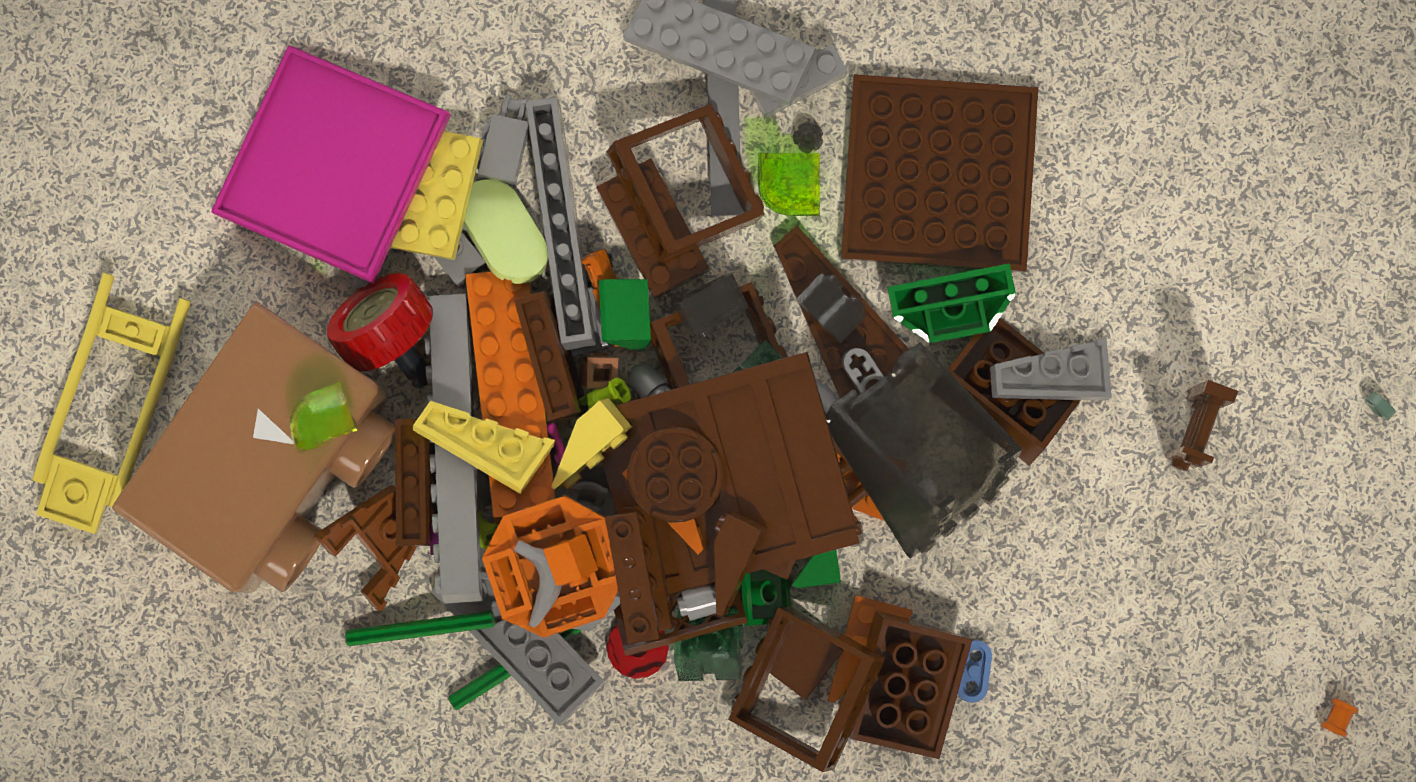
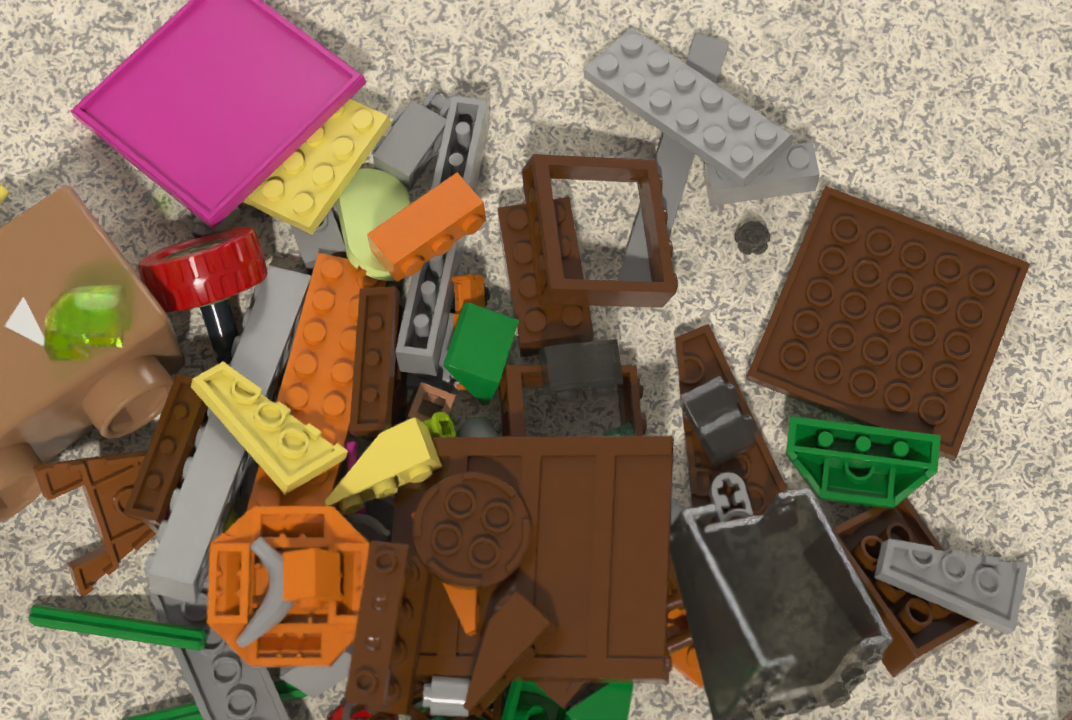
camera: 20 degrees right, 15 degrees down
(550, 231) = (427, 227): none -> orange brick
(790, 182) = (715, 271): clear neon green brick -> none

